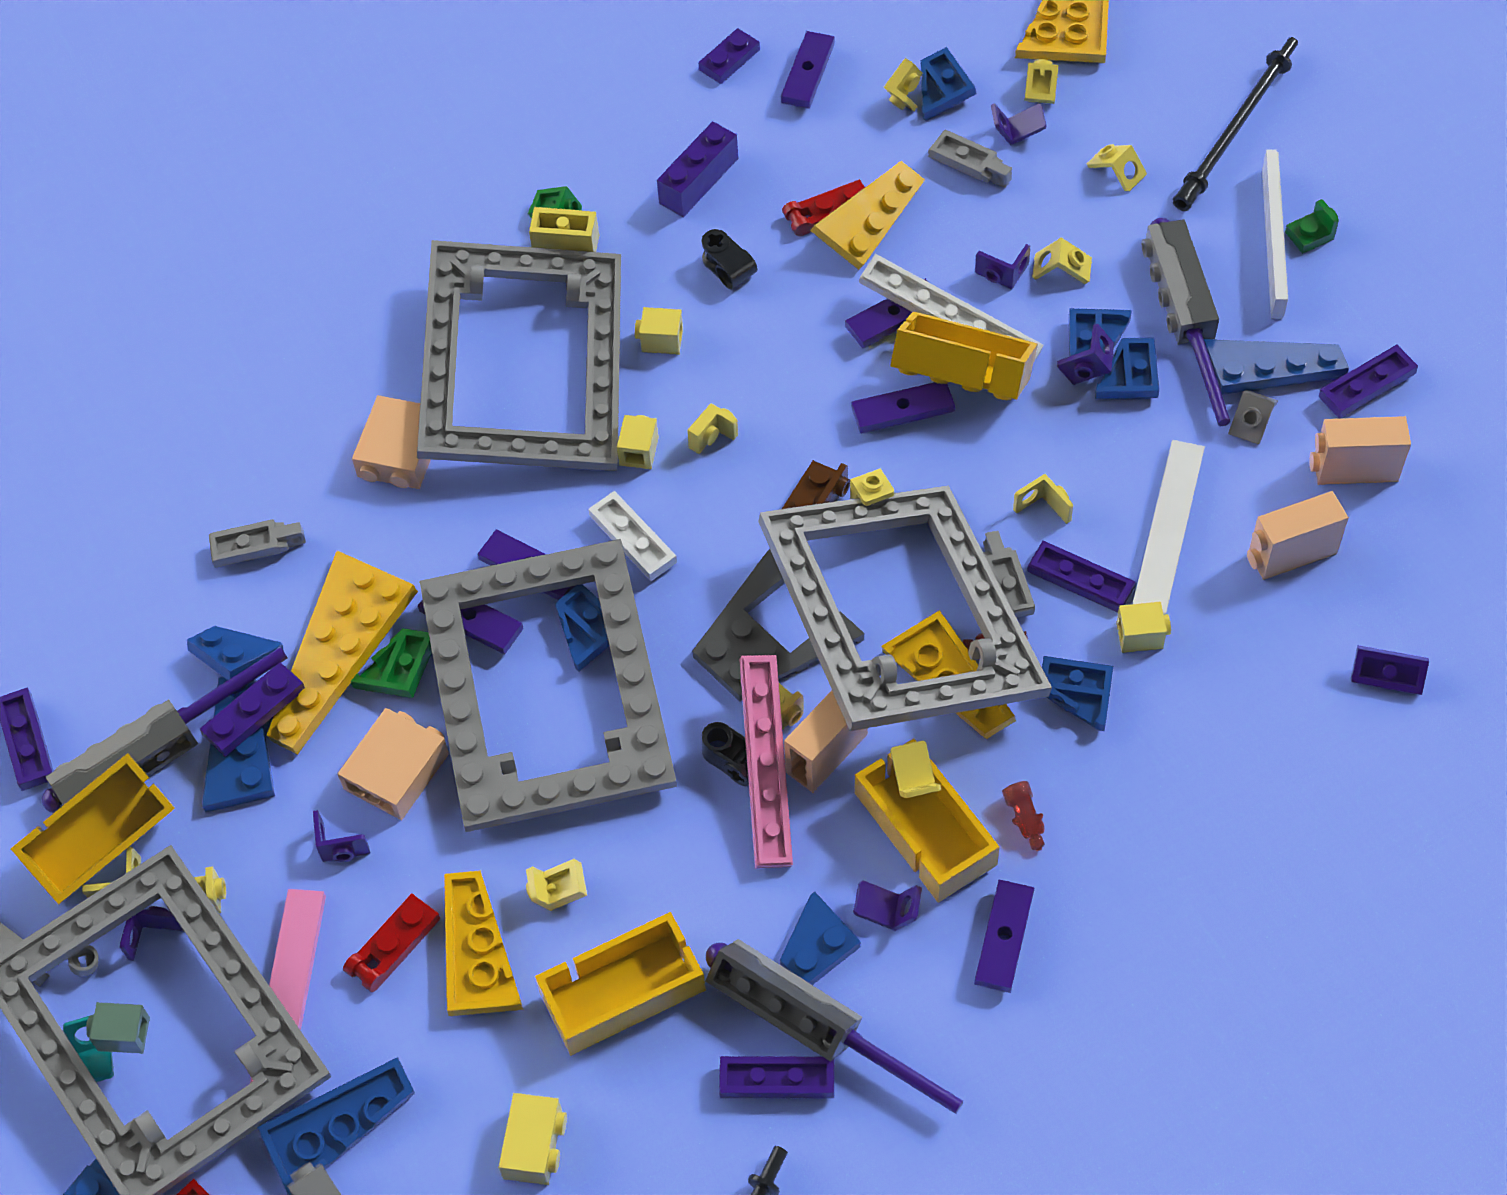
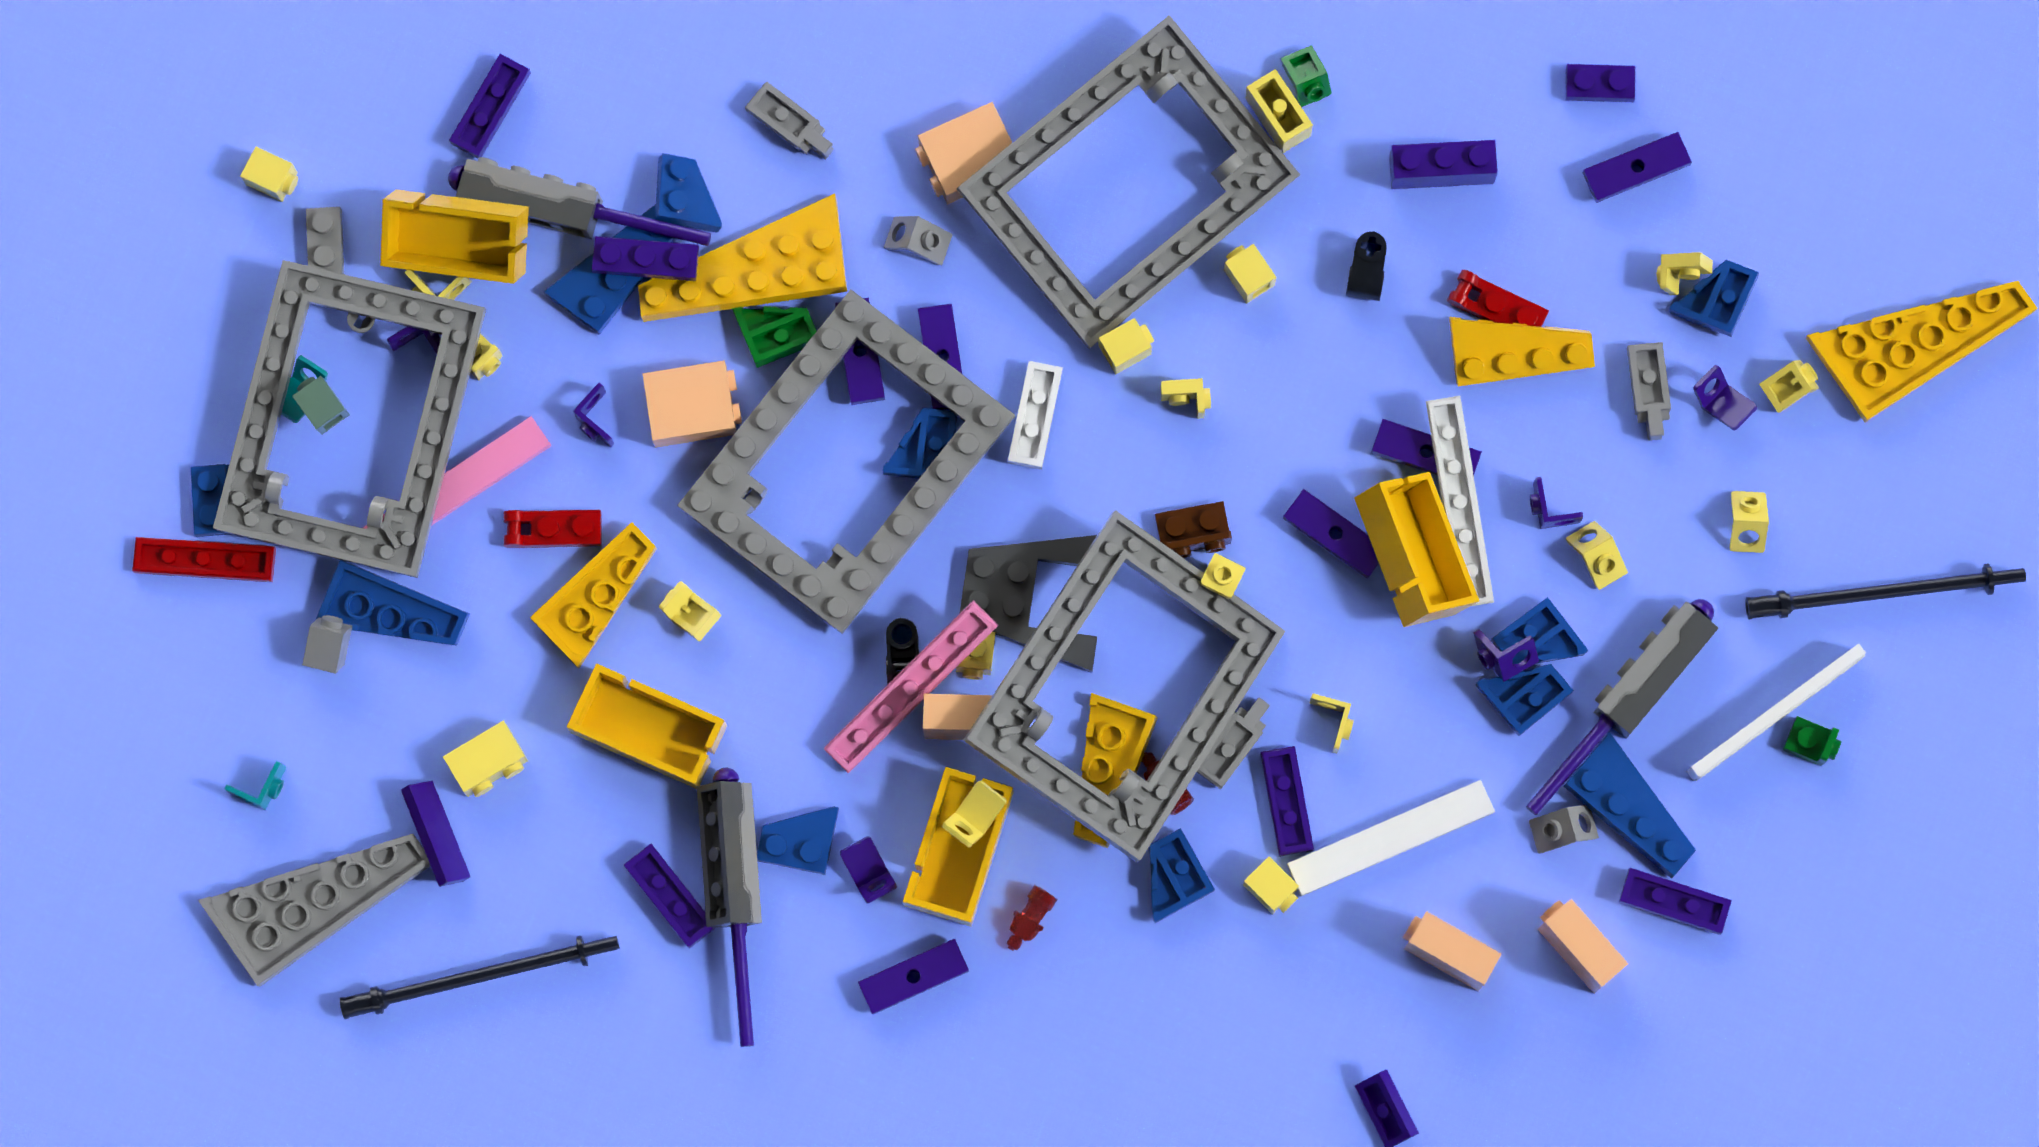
camera: 50 degrees right, 20 degrees up
(424, 514) = (919, 238): none -> light grey bracket

